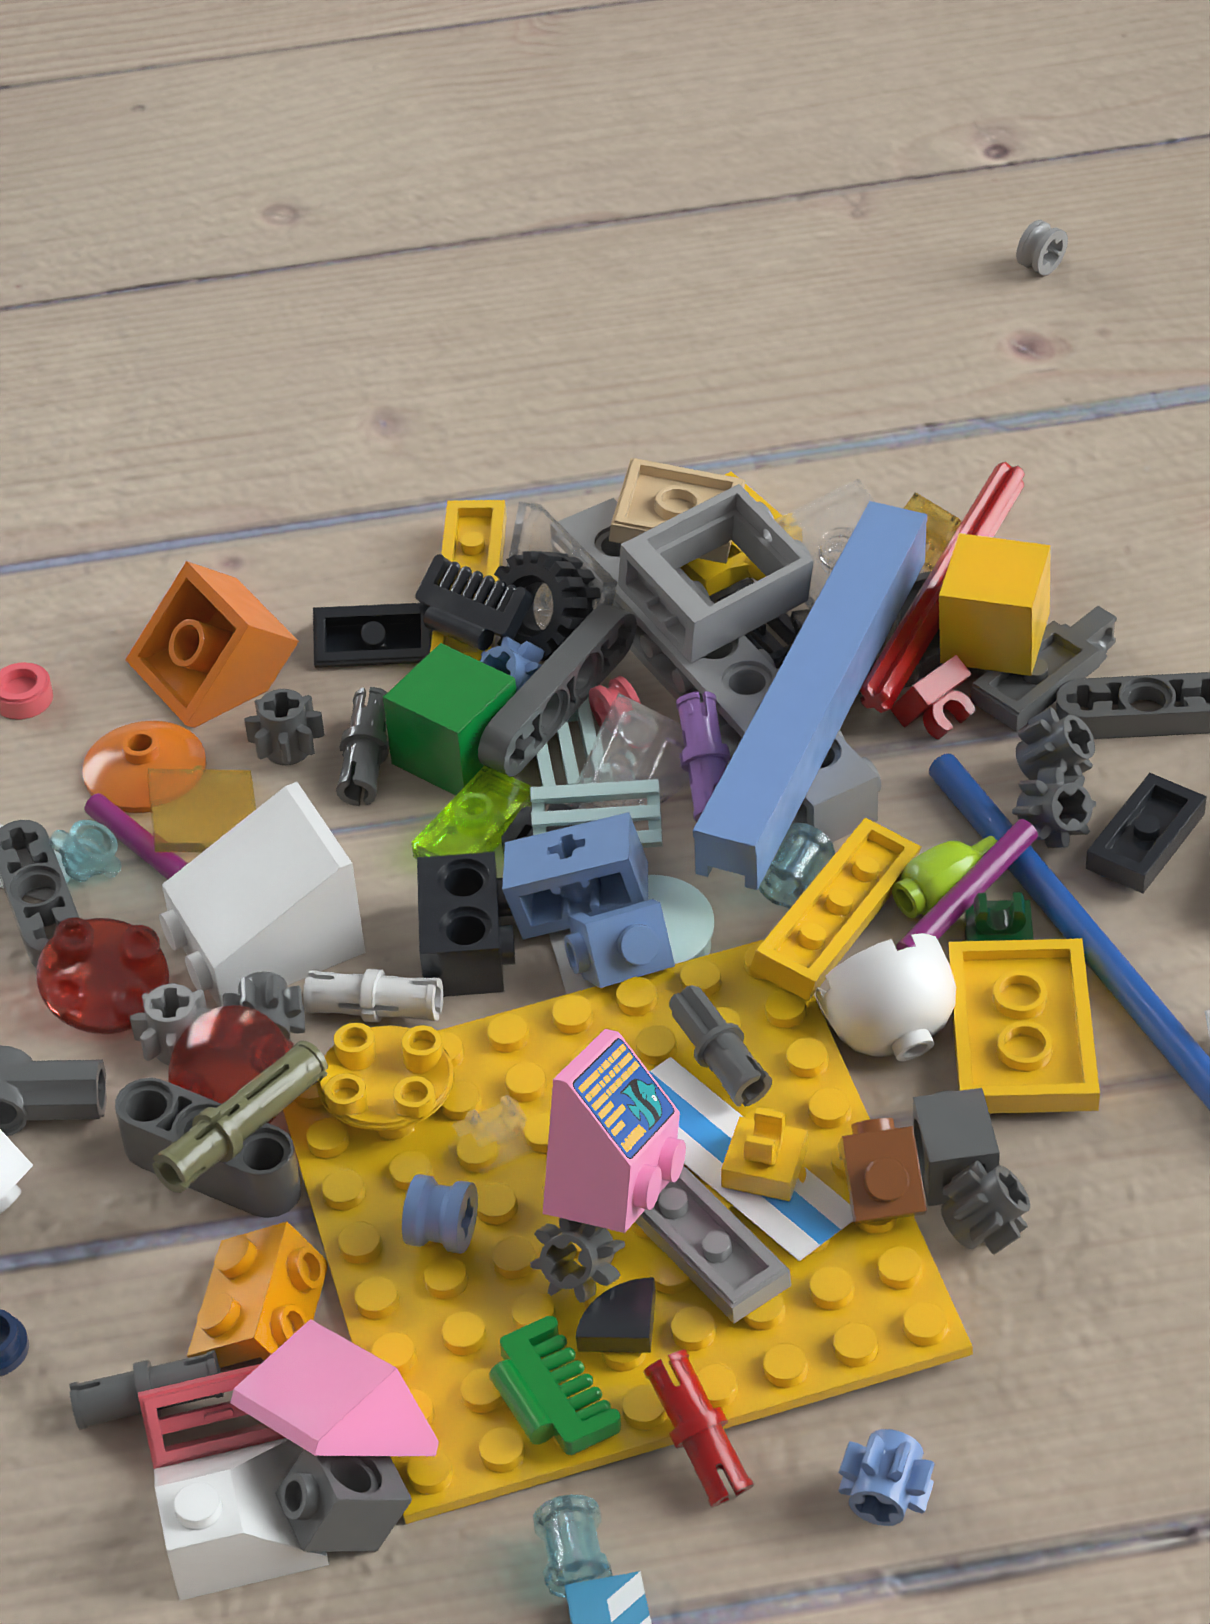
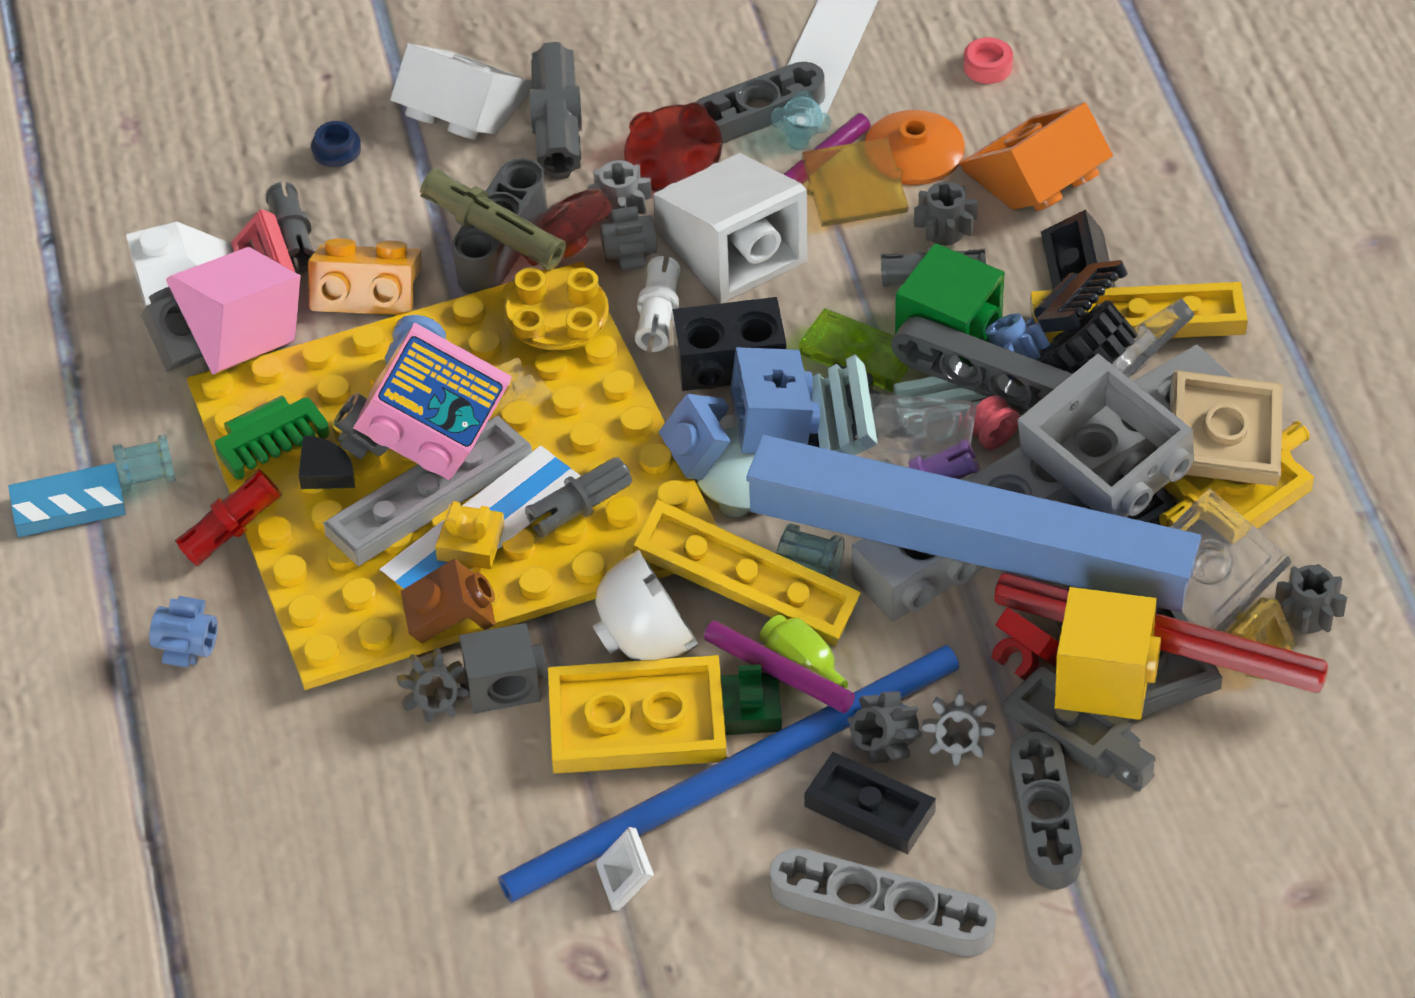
camera: 85 degrees right, 5 degrees up
(892, 480) = (1311, 598): none -> dark grey gear

